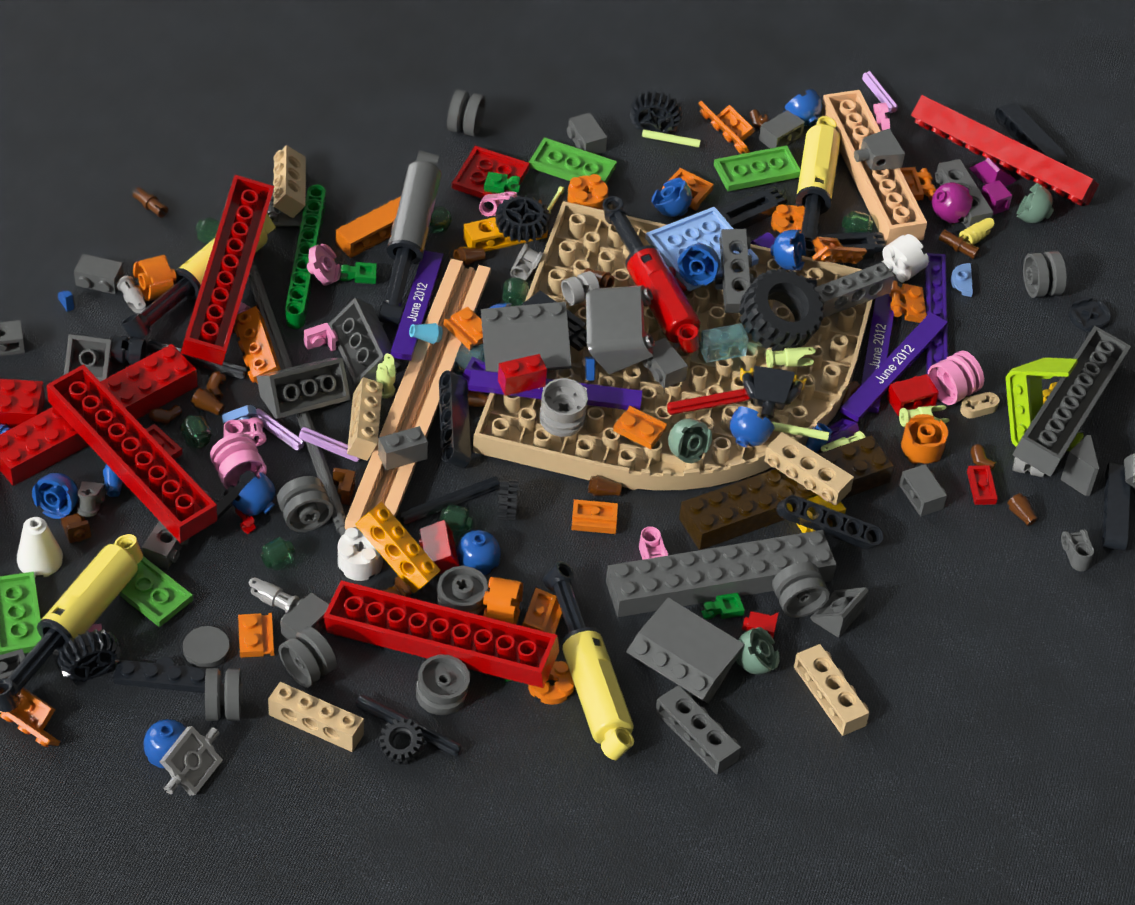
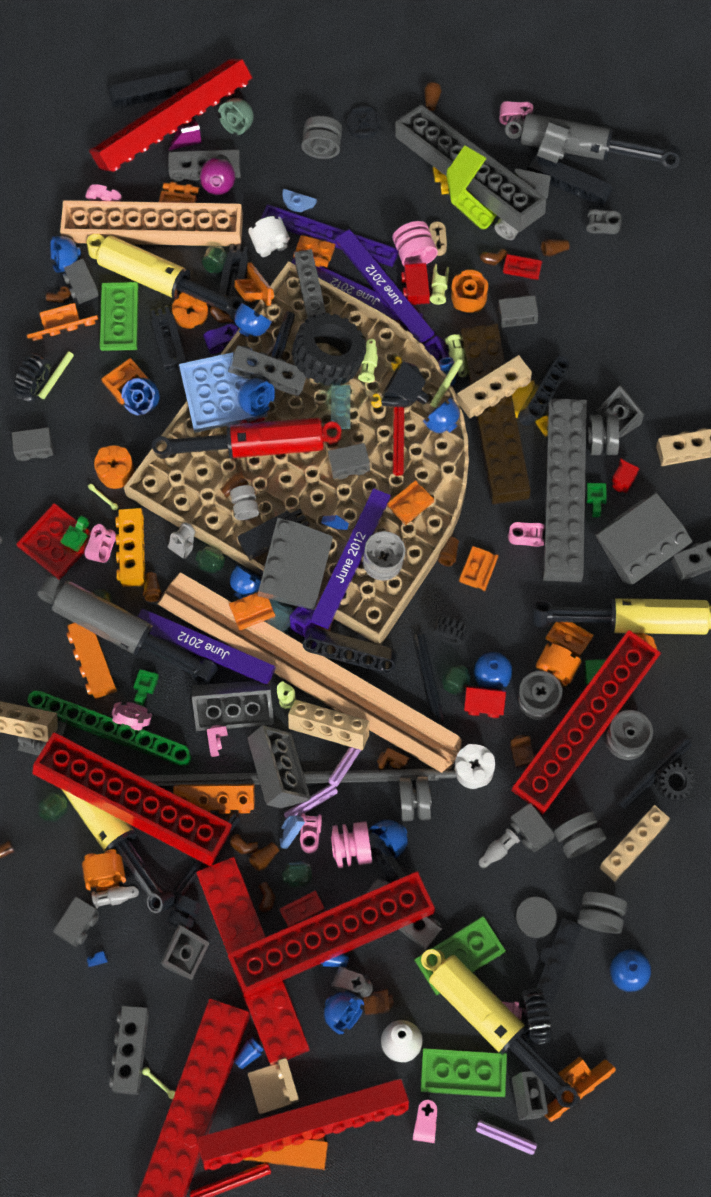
camera: 65 degrees left, 20 degrees up
(191, 760) = (660, 953): light grey plate -> none
(247, 522) = (412, 852): red hand -> none
(255, 635) = (532, 873): orange plate -> none
(277, 554) = (455, 835): clear green head -> none
(397, 547) = (489, 732): light orange brick -> none
(402, 448) = (381, 700): dark grey brick -> none
(427, 332) = (252, 645): medium azure cone -> none
(522, 218) = (132, 540): black gear -> none
(522, 374) = (338, 578): red brick -> none
(569, 161) = (64, 467): bright green plate -> none
(617, 326) = (307, 482): dark grey windscreen -> none
(689, 440) = (441, 469): sand green cylinder -> none
(758, 652) = (655, 483): sand green cylinder -> none
(879, 91) = (56, 186): lavender axle -> none
(880, 151) = (152, 209): dark grey torso -> none
(959, 244) = (259, 189): reddish brown pin -> none
(977, 231) = (251, 171): light yellow hinge -> none
(997, 196) = (214, 140): magenta brick -> none

